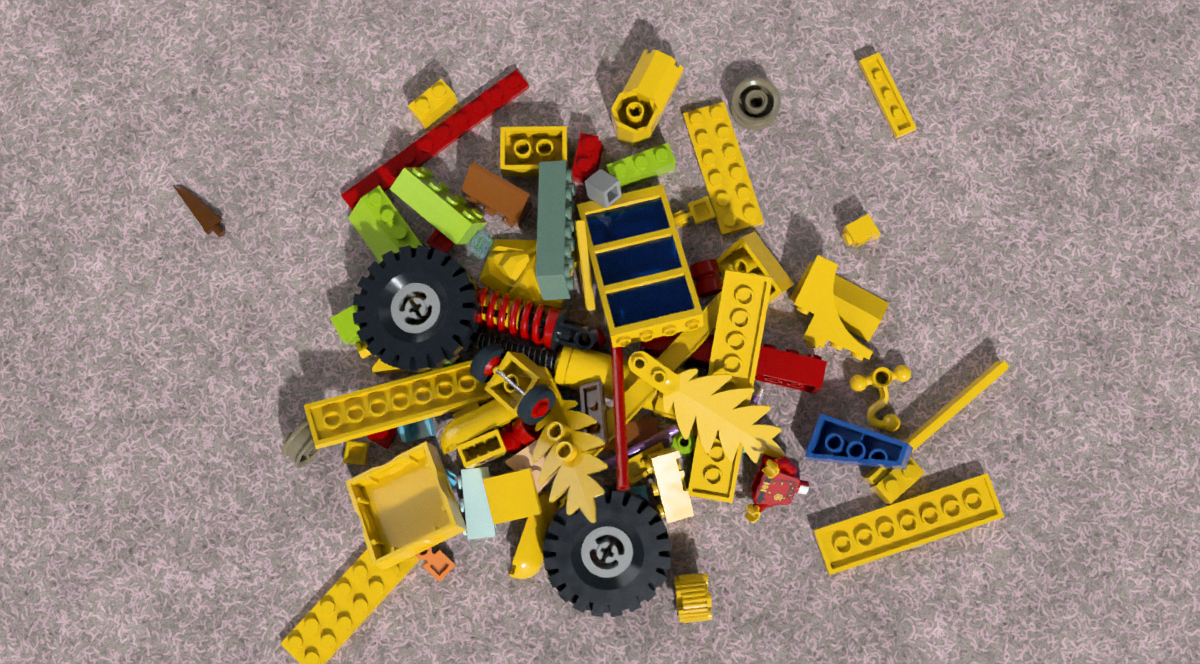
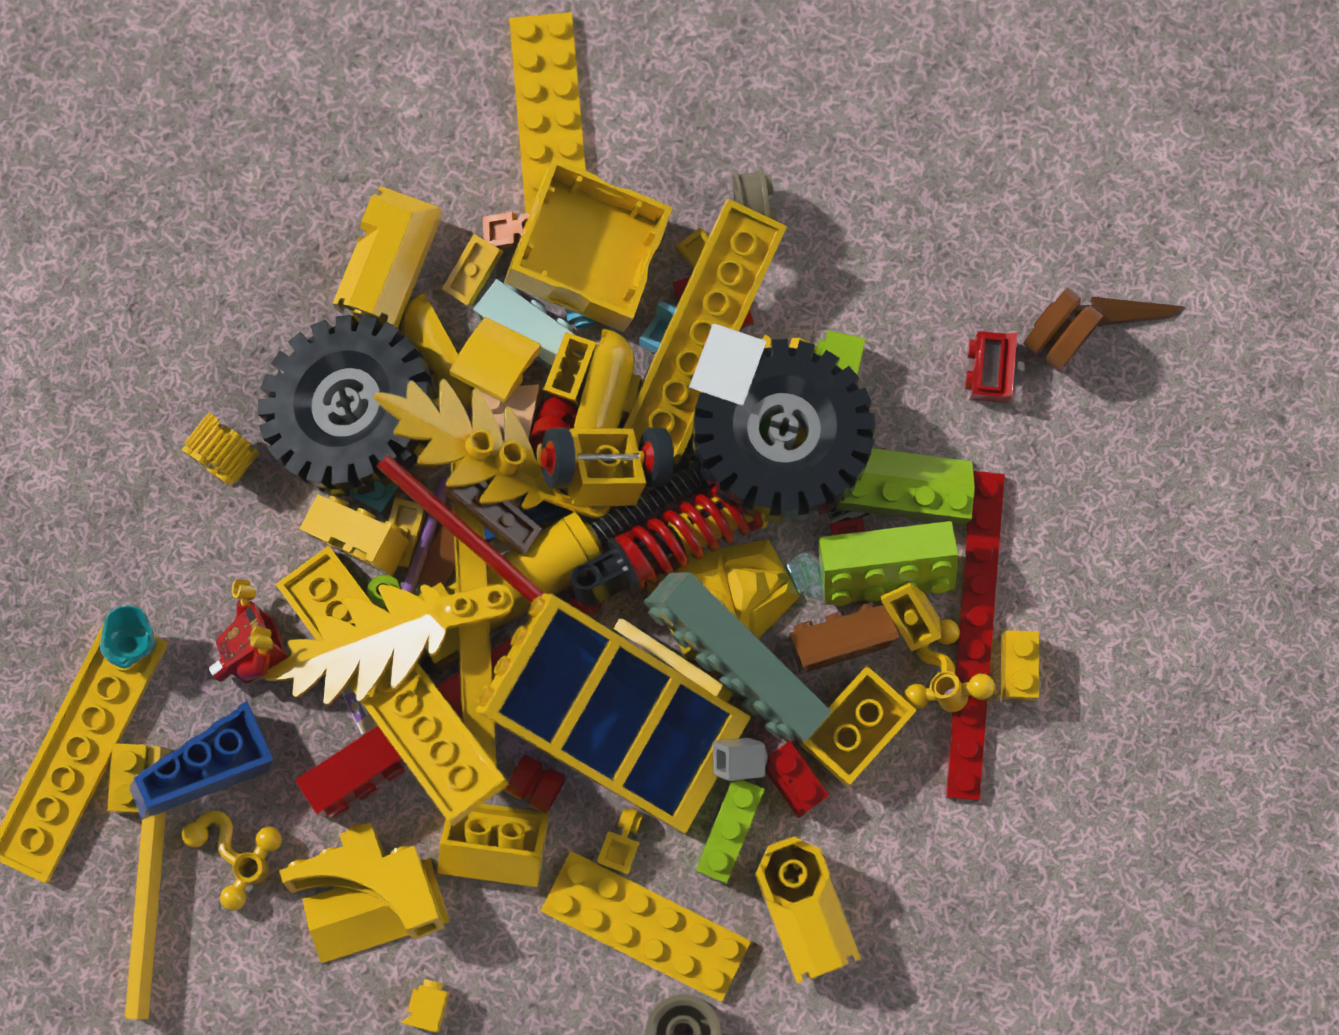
camera: 130 degrees right, 0 degrees up
(237, 226) = (1060, 327): none -> dark orange wheel
(288, 247) = (991, 366): none -> red window
(407, 364) = (727, 364): none -> white sticker
(455, 167) = (913, 615): none -> yellow slope
(473, 559) = (472, 270): none -> yellow plate
(492, 137) = (980, 685): none -> yellow piece
(508, 607) = (388, 257): none -> yellow brick
(833, 548) = (126, 636): none -> teal hair

